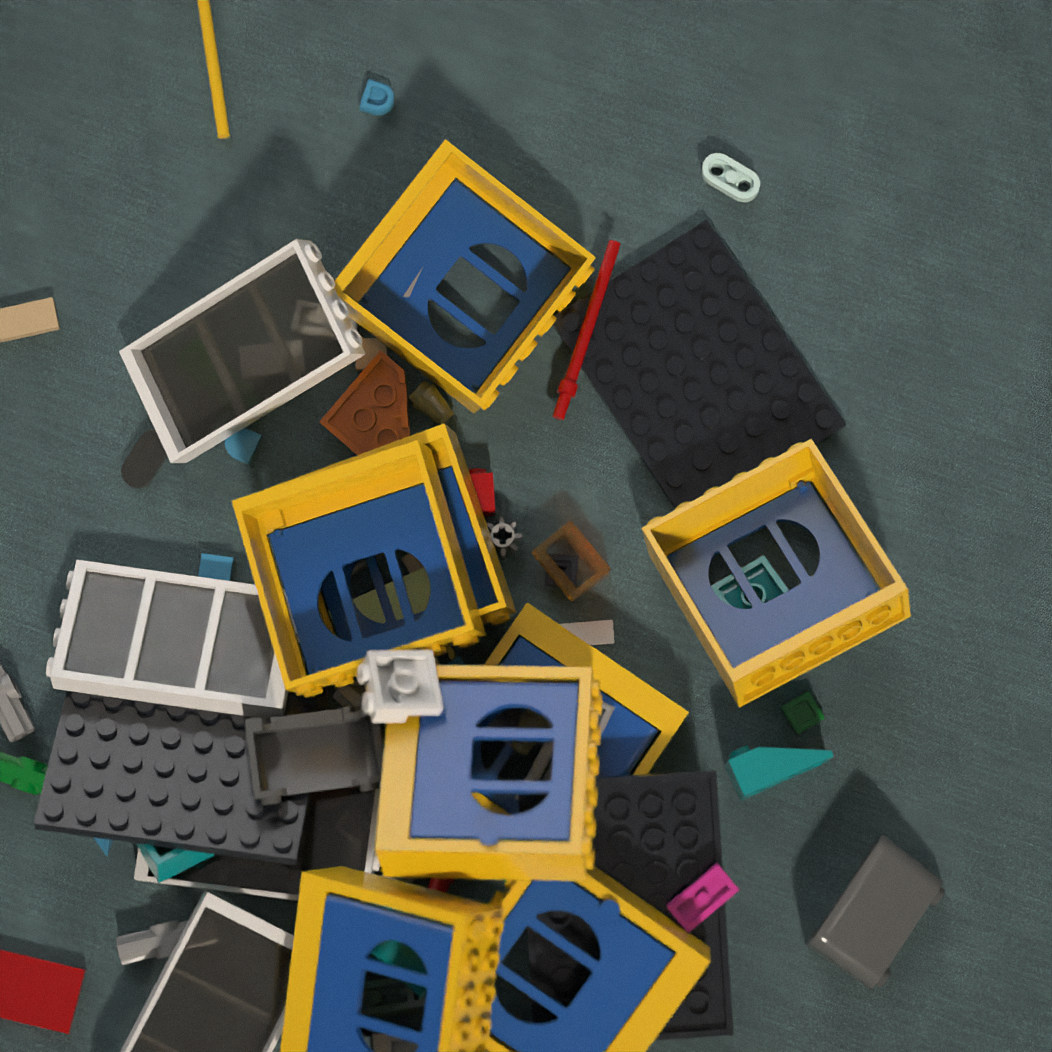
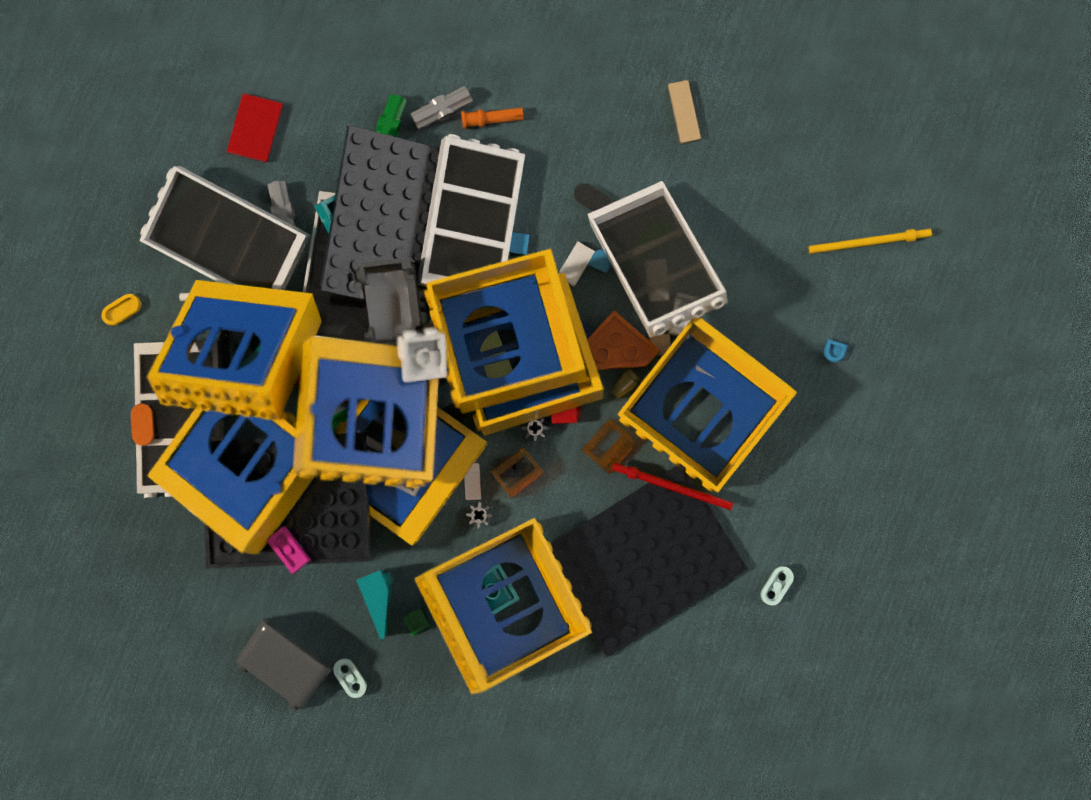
camera: 85 degrees right, 5 degrees up
(17, 630) = (481, 118): none -> orange pin
(241, 477) = (576, 263): none -> white tile
(537, 415) = (615, 453): none -> clear orange tile
(637, 610) = (485, 515): none -> light grey gear
(892, 811) = (349, 678): none -> light aqua plate

